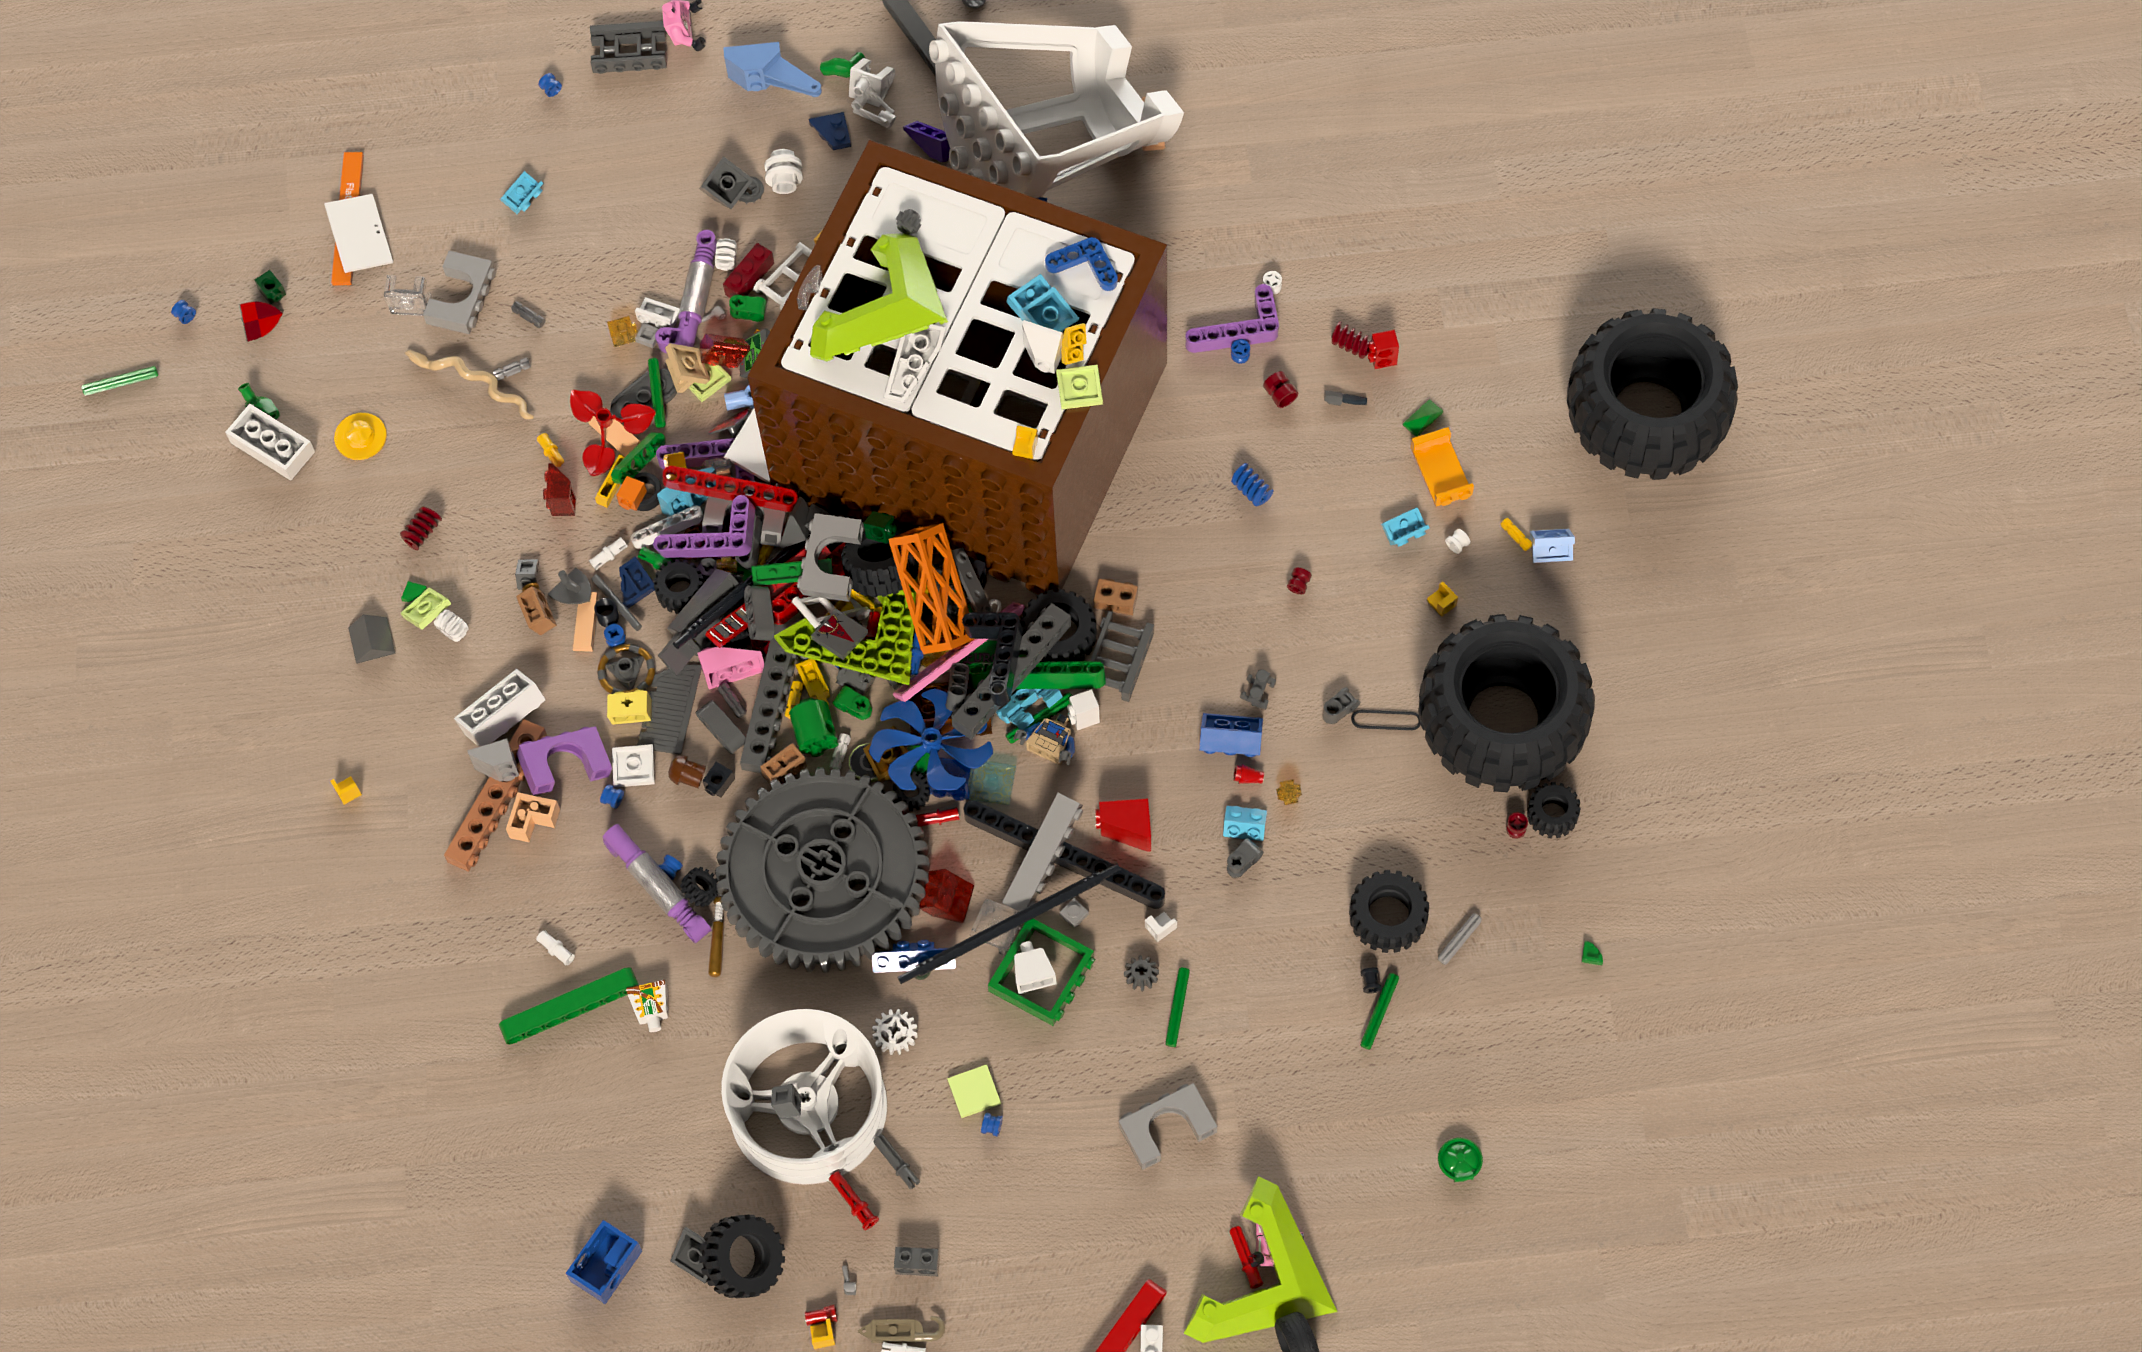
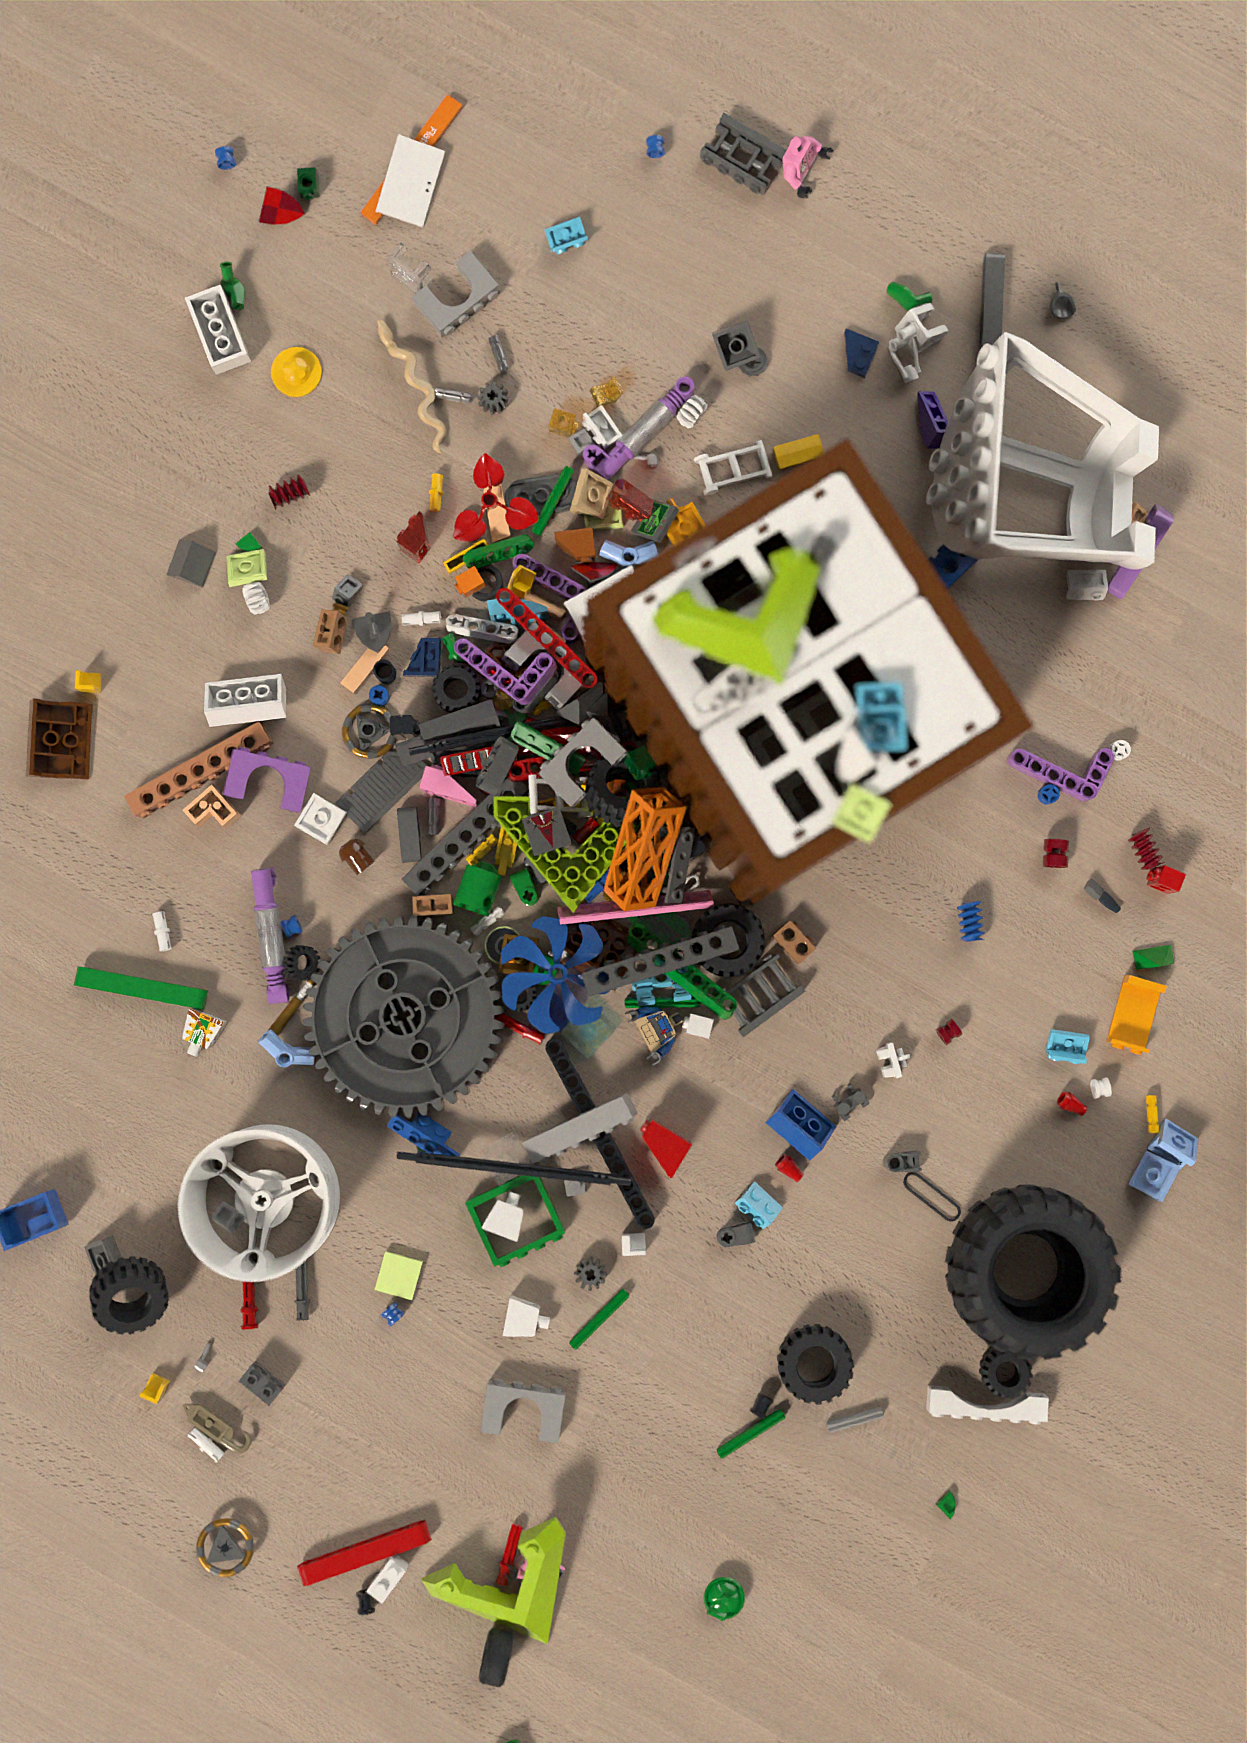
camera: 30 degrees right, 20 degrees up
(119, 380) = (137, 186): axle -> none
(350, 852) = (59, 739): none -> reddish brown piece
(495, 760) = (209, 750): light grey slope -> none
(548, 349) = (498, 402): none -> dark grey gear
(612, 796) = (286, 834): blue wheel -> none
(619, 605) = (399, 667): dark grey bar -> none
(629, 707) = (338, 764): light yellow brick -> none
(643, 286) = (607, 392): none -> clear yellow bracket
(654, 639) = (404, 727): none -> black brick
(701, 410) = (577, 544): none -> dark orange slope
(717, 464) = (554, 603): clear slope -> none
(718, 771) = (384, 875): black brick -> none
(726, 969) = (276, 1047): none -> light blue piece
(749, 271) = (699, 441): dark red brick -> none
(749, 308) = (680, 474): green piece -> none
(762, 65) = (841, 253): medium blue slope -> none
(783, 171) = (790, 366): white piece -> none
(821, 1315) = (169, 1374): red pin -> none
(902, 1033) = (364, 1180): white gear -> none
(947, 896) = (486, 1103): clear red slope -> none
(957, 686) = (613, 935): dark grey beam -> none
(1008, 631) = (661, 945): black beam -> none
(1025, 442) = (775, 836): yellow panel -> none
(1072, 344) = (880, 775): yellow slope -> none
(1089, 256) = (959, 694): blue beam -> none
(1110, 1049) = (523, 1318): none -> white torso
(1150, 181) = (1086, 584): none -> white bracket
(1175, 146) = (1123, 577): none -> medium lavender beam
(1271, 630) = (893, 1069): none -> white hips
(1289, 792) = (810, 1207): clear yellow gear -> none
(1443, 569) = (1070, 1103): none -> red cone
(1443, 599) = (1051, 1128): yellow panel -> none
(1517, 820) = (971, 1363): dark red wheel -> none
(1525, 868) = (1027, 1407): none -> white arch
(1555, 577) = (1154, 1176): none -> light blue bracket

